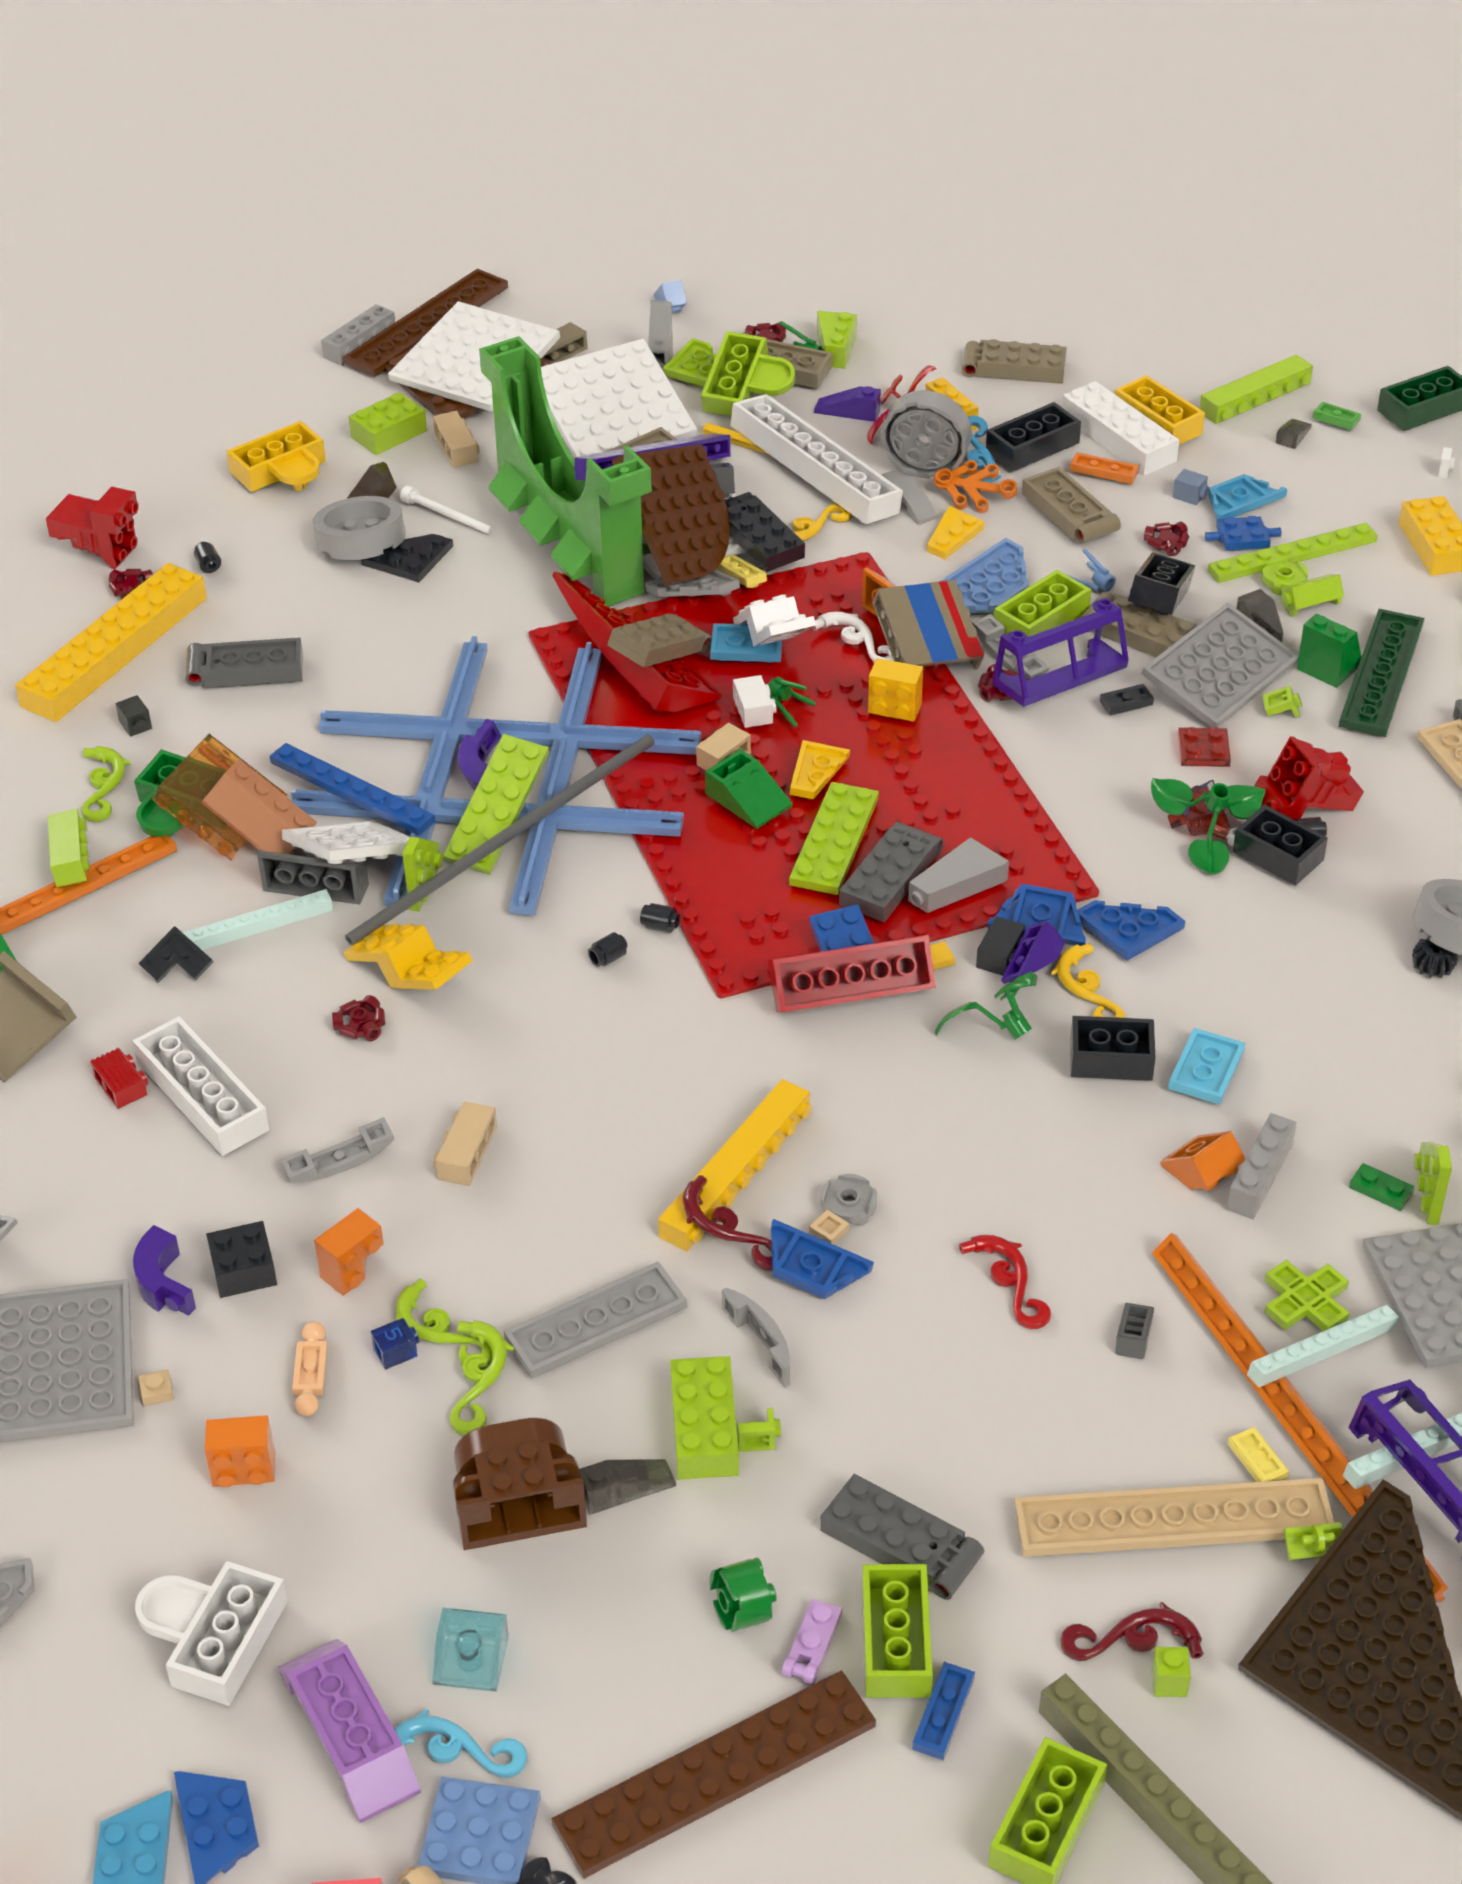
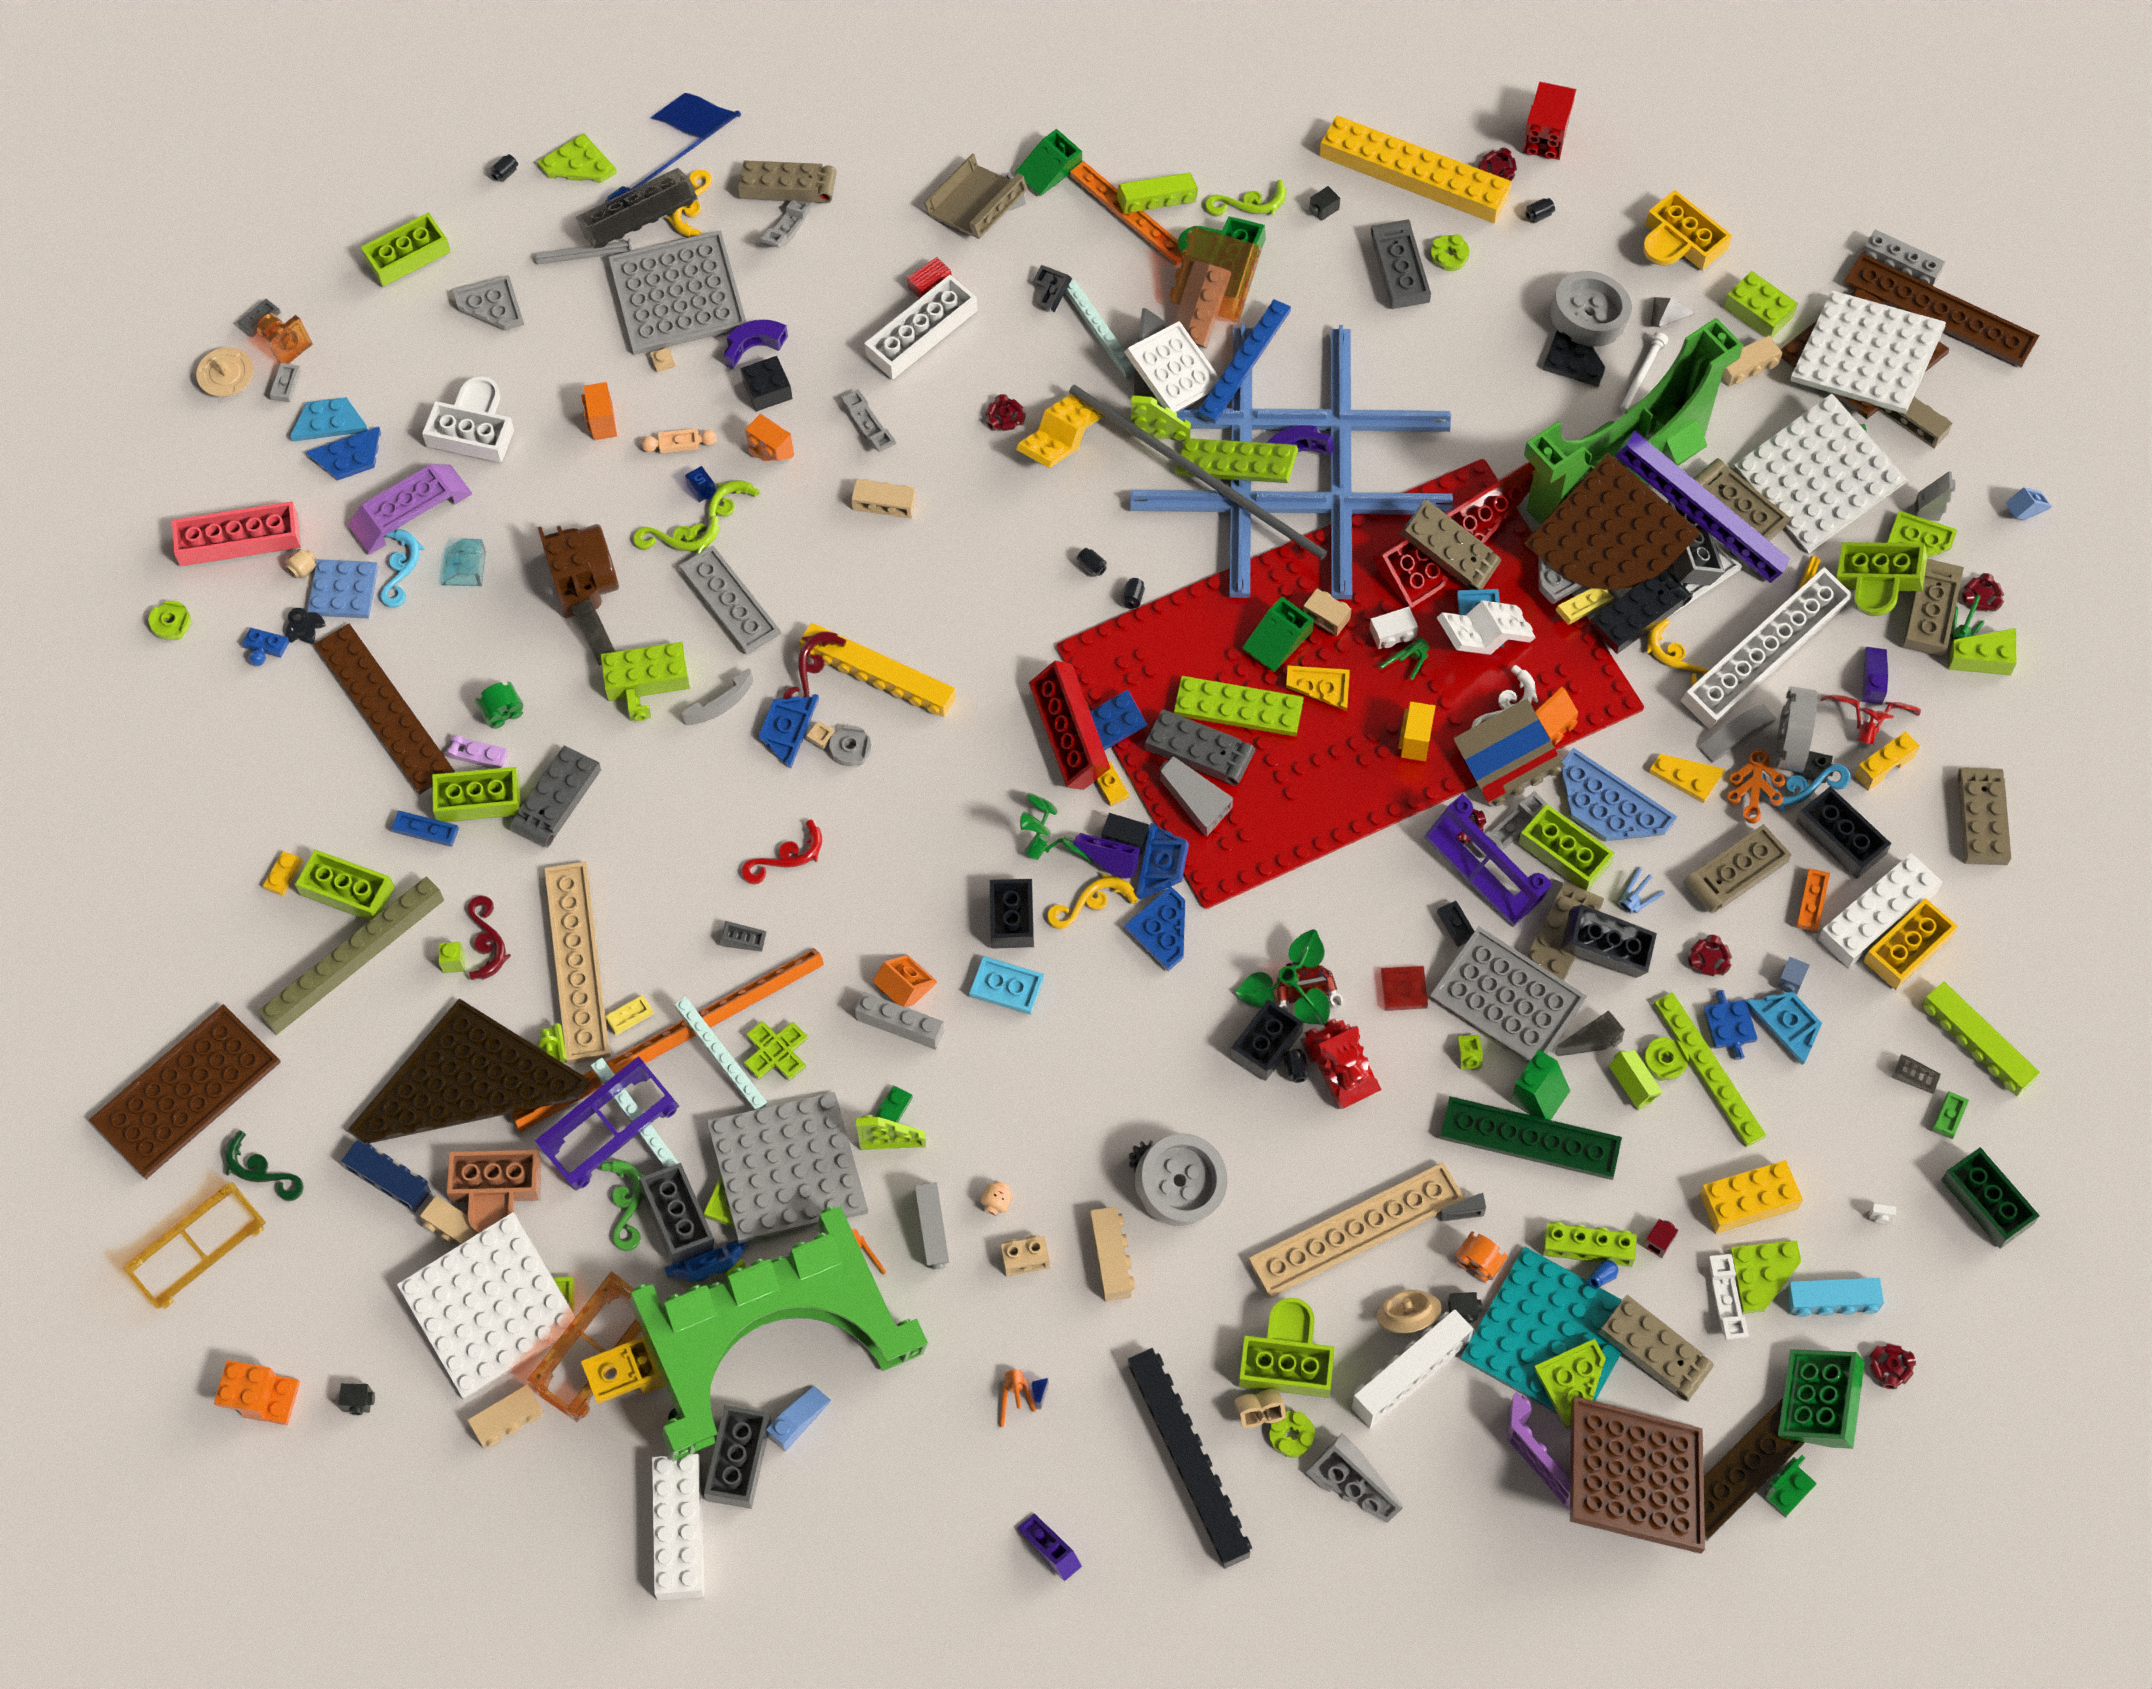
camera: 85 degrees right, 20 degrees up
(245, 623) = (1450, 243): none -> lime plate

